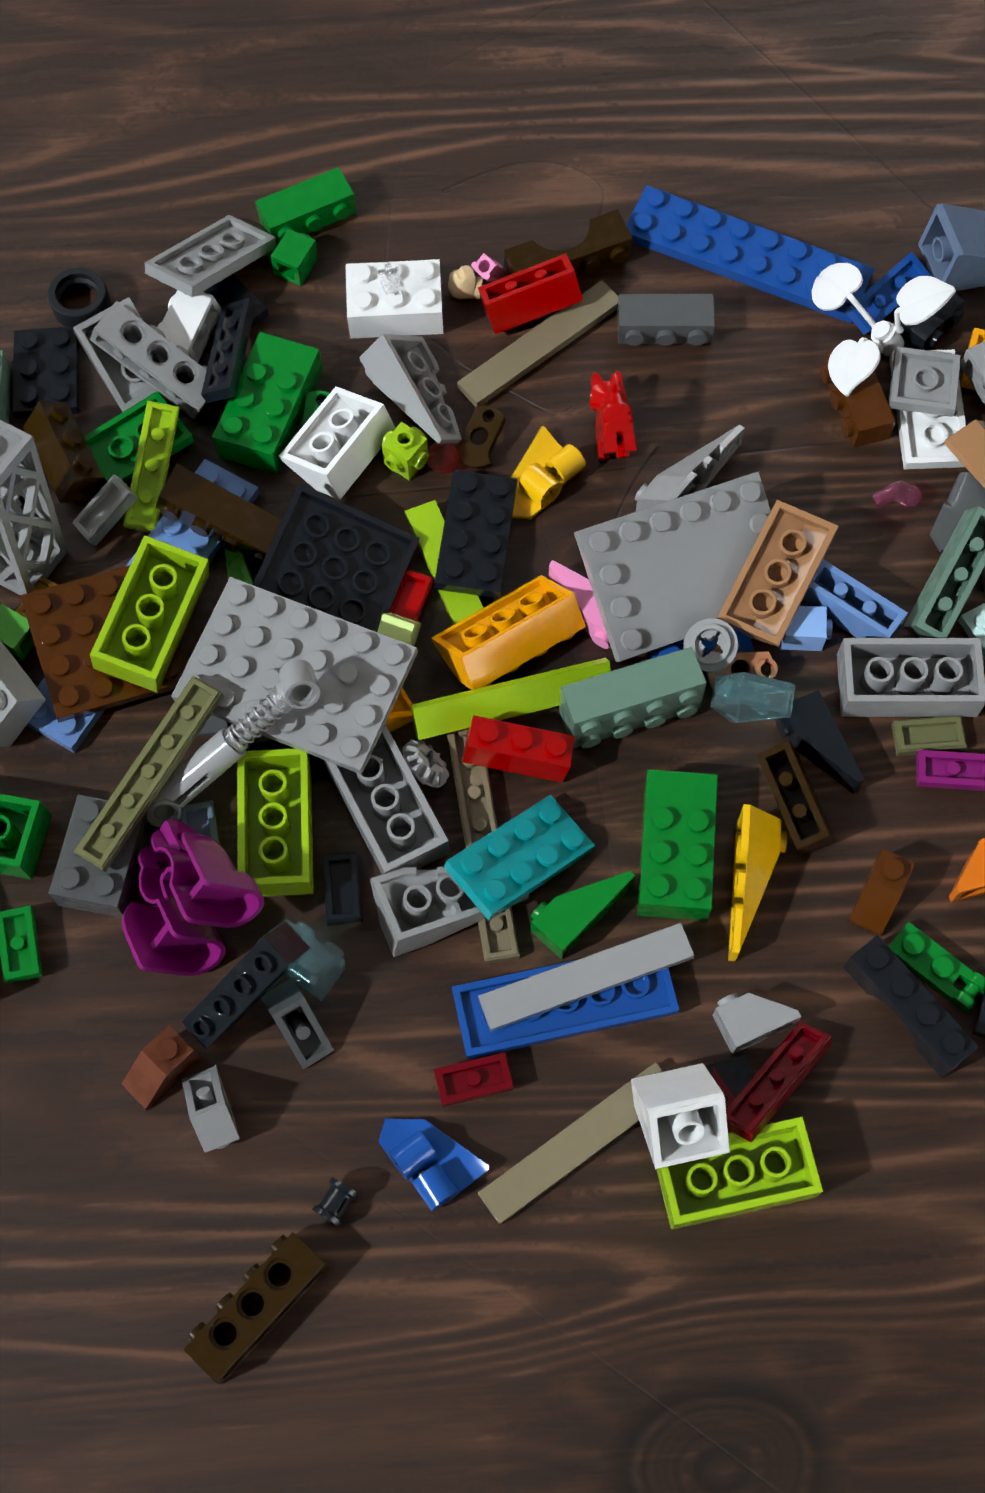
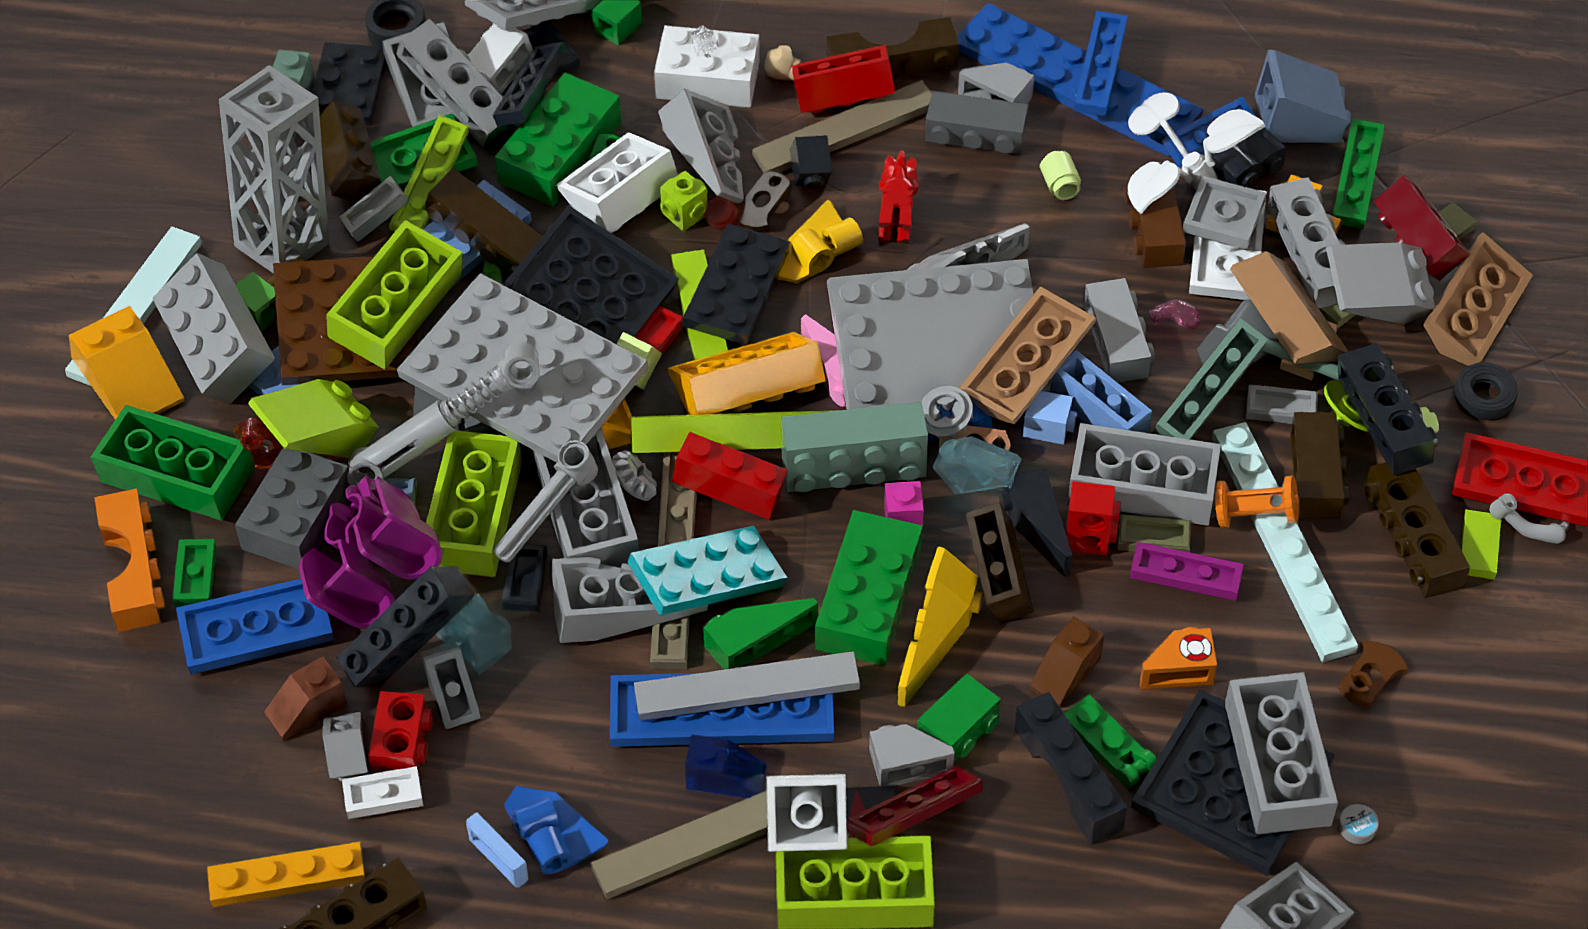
camera: 10 degrees right, 15 degrees down
(44, 791) = (251, 434): none -> clear red piece
(85, 995) = (251, 626): none -> blue plate
(93, 759) = (316, 418): none -> lime slope
(148, 773) = (358, 431): olive tile -> none
(183, 1259) = (285, 874): none -> light orange plate
(253, 1089) = (394, 734): none -> red brick
(258, 1154) = (382, 792): none -> white plate
(335, 1202) = (448, 846): black bush -> none
(351, 816) = (549, 497): none -> light grey axle
(384, 1198) = (497, 850): none -> light blue tile
(473, 1079) = (612, 762): dark red plate -> none
(489, 268) = (806, 50): bright pink piece -> none
(518, 388) = (811, 161): none -> black brick
(583, 1067) = (723, 768): none -> clear blue slope
(676, 274) = (997, 82): none -> light grey slope
(691, 751) = (904, 502): none -> dark pink brick
(757, 362) = (1060, 175): none -> yellowish green brick
(772, 238) = (1100, 63): none -> blue plate
(794, 970) = (962, 716): none -> green brick
(858, 540) = (1119, 330): none -> light grey brick
(874, 735) = (1092, 518): none -> red brick

